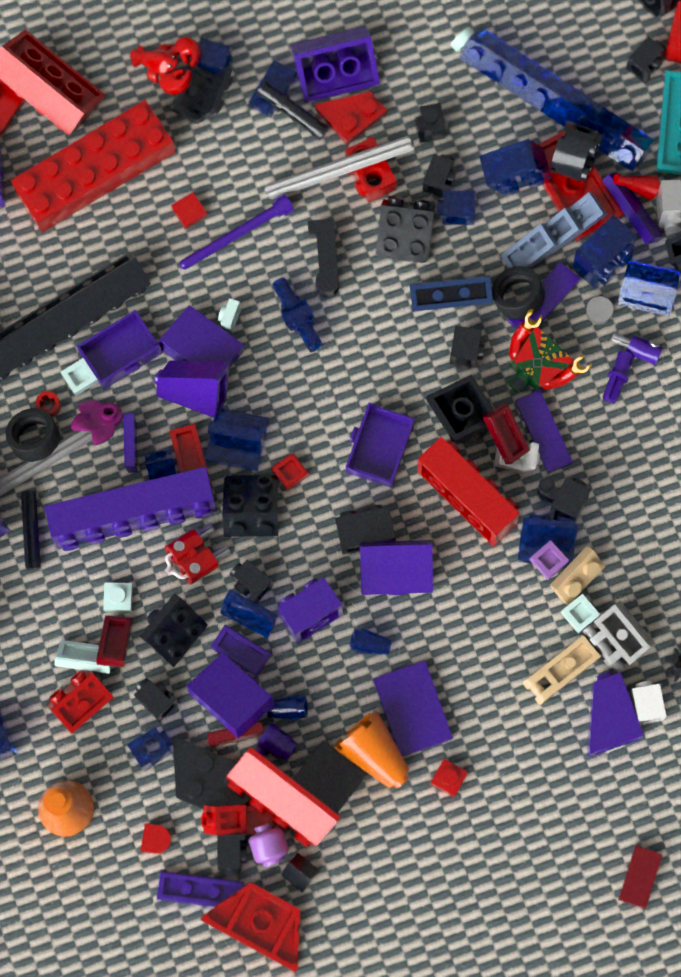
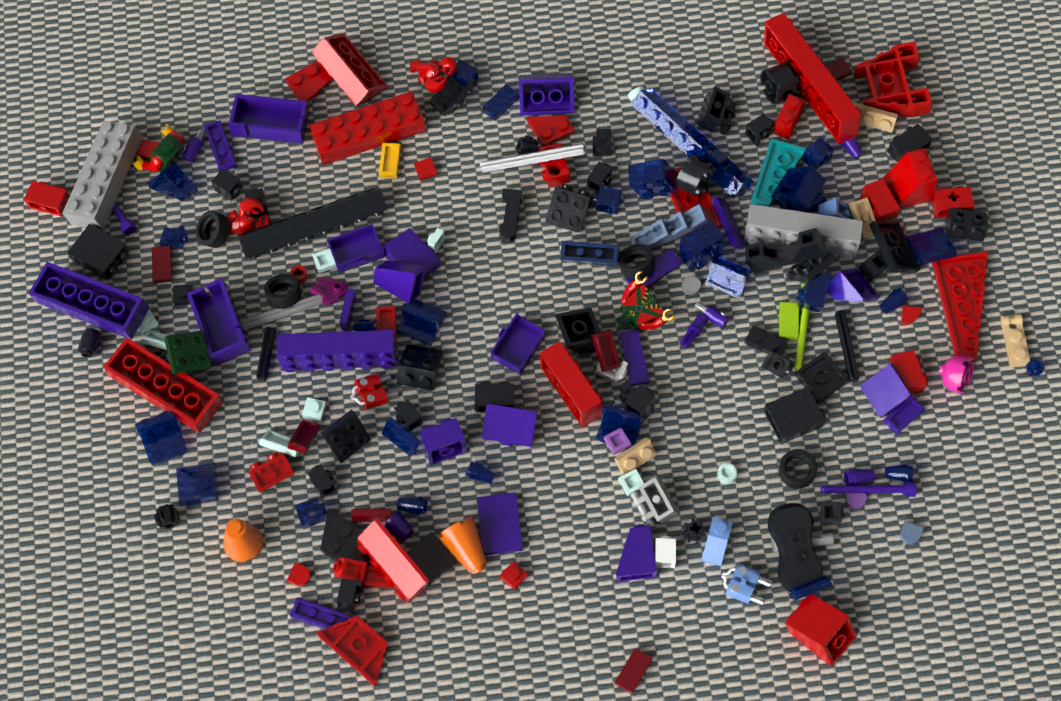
camera: 10 degrees right, 10 degrees down
(135, 207) = (389, 160): none -> yellow tile
(230, 695) = (374, 486): dark purple container -> none
(241, 650) = (389, 461): dark purple tile -> none
(268, 845) = (376, 593): medium lavender head -> none
(280, 207) = (487, 178): dark purple piece -> none
(290, 471) = (452, 350): red tile -> none
(291, 109) = (506, 112): black pin -> none
(297, 314) = (482, 248): clear blue pin -> none
(300, 872) = (394, 618): black slope -> none
(326, 149) = (527, 145): none -> black gear
(466, 348) = (592, 291): black brick -> none
(562, 669) = (610, 517): tan plate -> none
(580, 44) = (713, 110): none -> black brick
(643, 185) = (739, 209): red cone -> none

